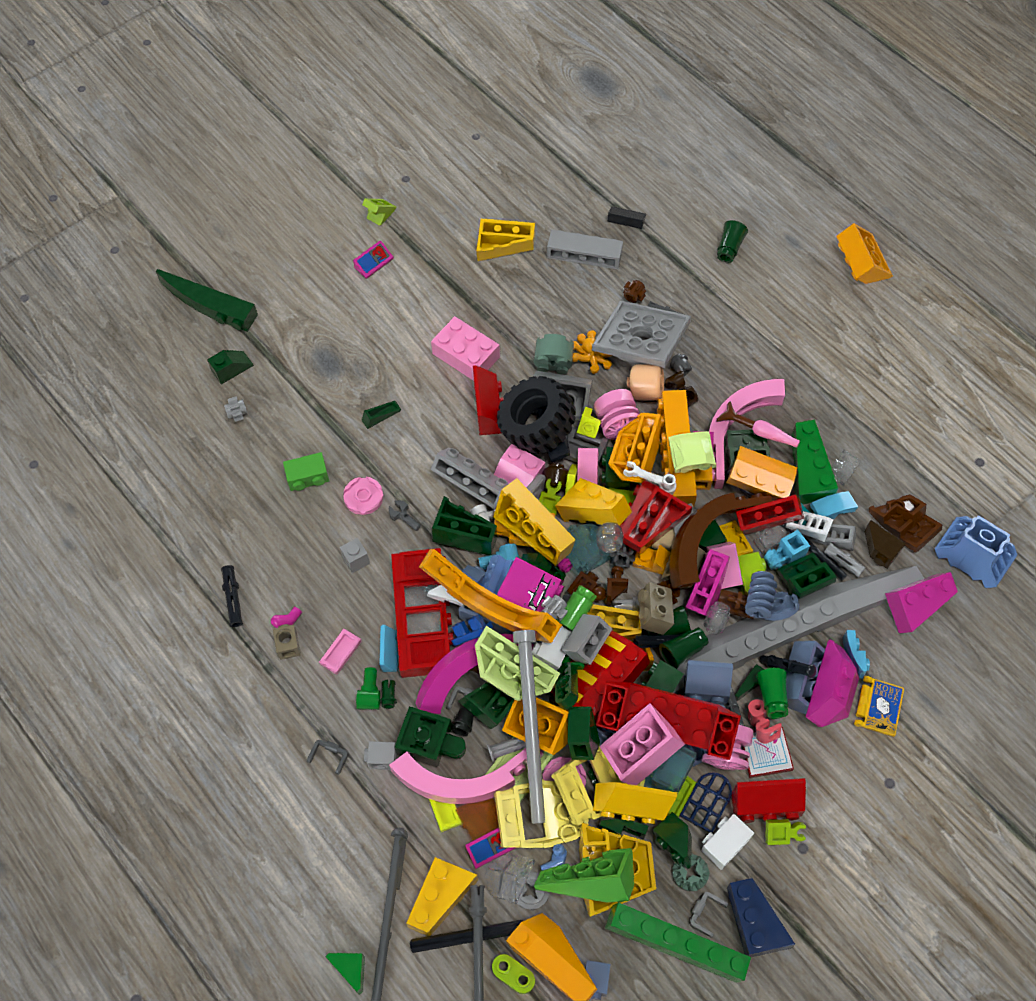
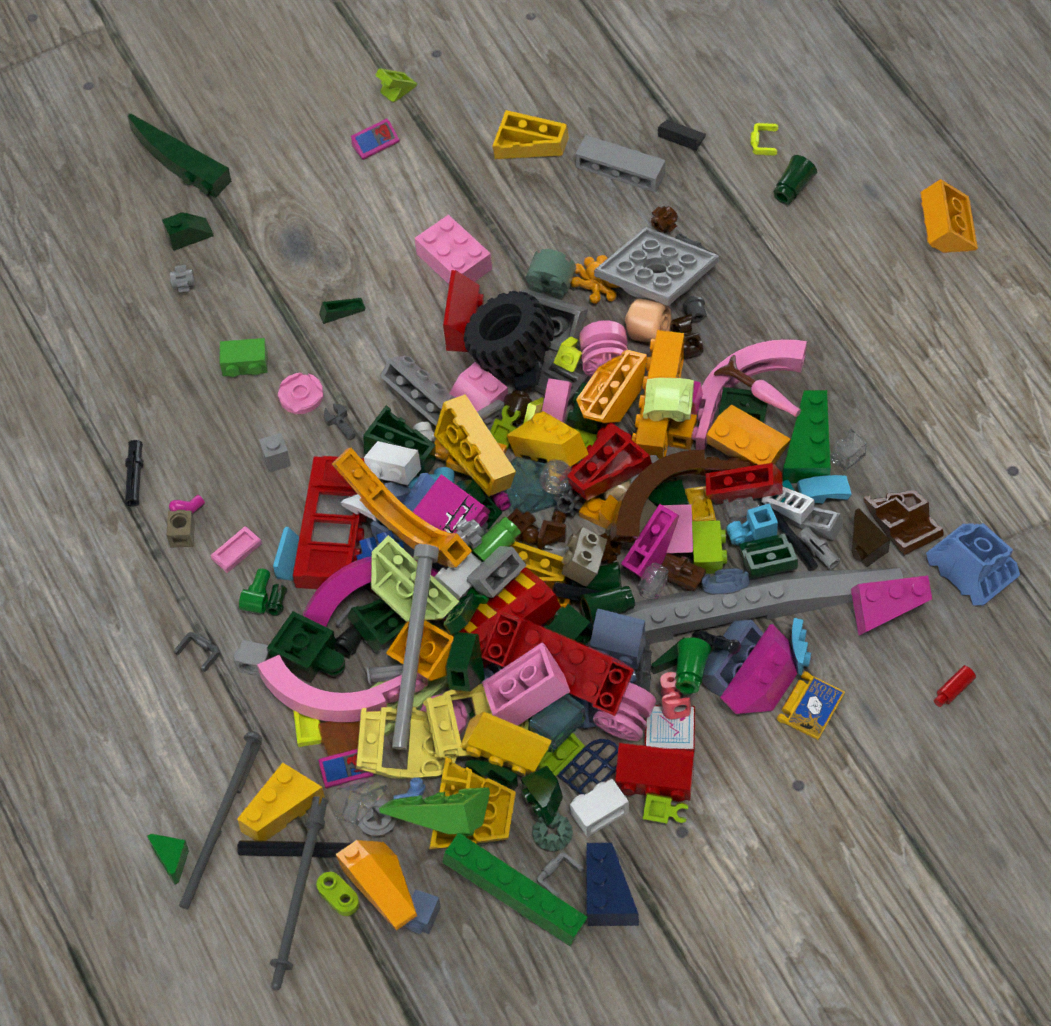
camera: 15 degrees right, 5 degrees down
(464, 549) = (393, 462): none -> white brick
(666, 483) = (629, 425): white brick -> none
(687, 211) = (755, 139): none -> neon yellow piece
(761, 595) = (704, 563): sand blue piece -> none
(995, 665) = (955, 685): none -> red cylinder

